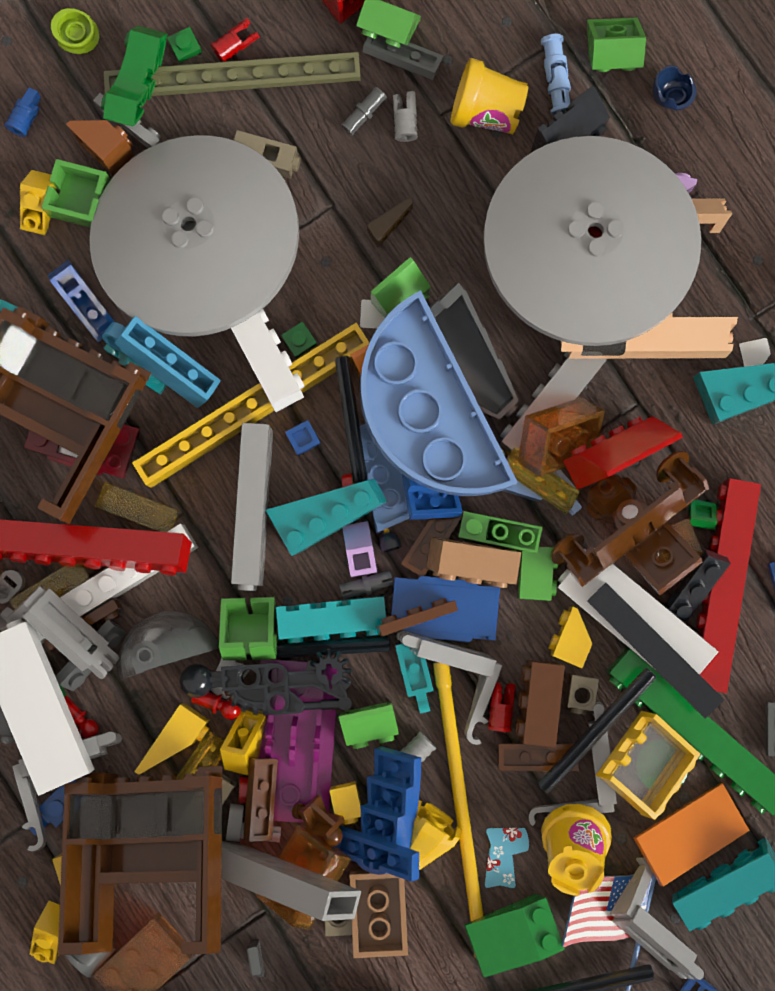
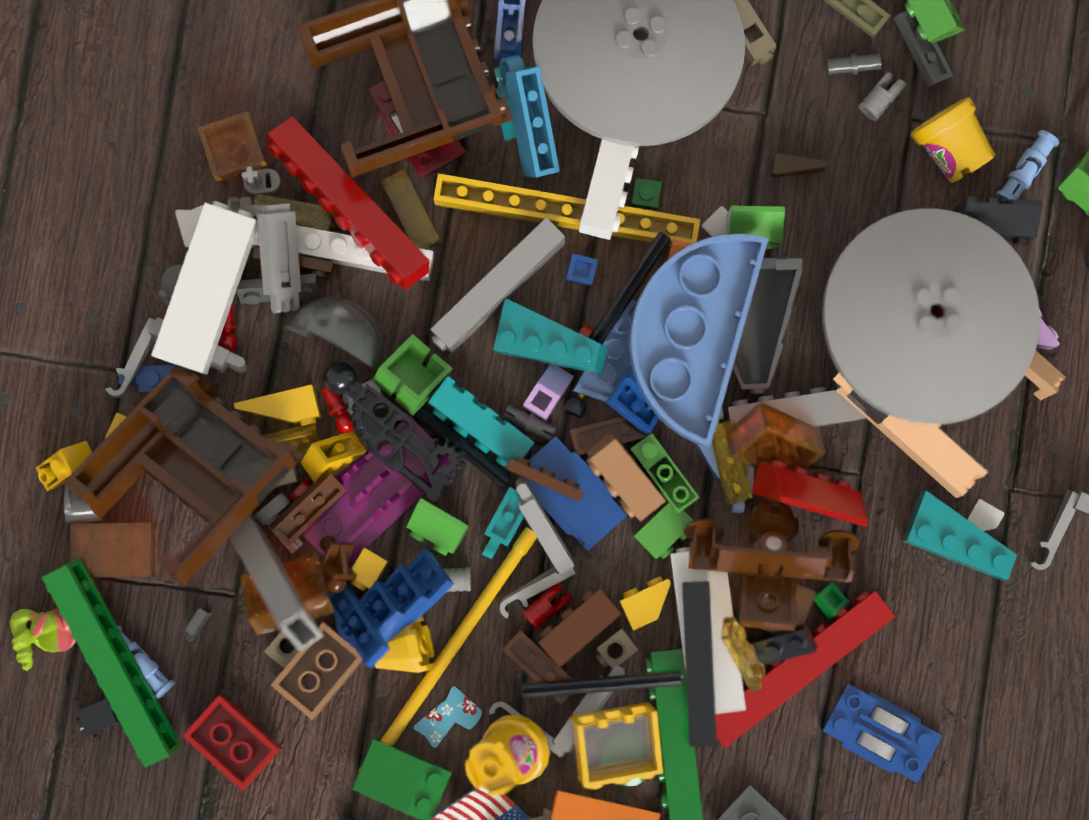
camera: 40 degrees right, 0 degrees up
(679, 613) = (742, 653): none -> clear yellow plate

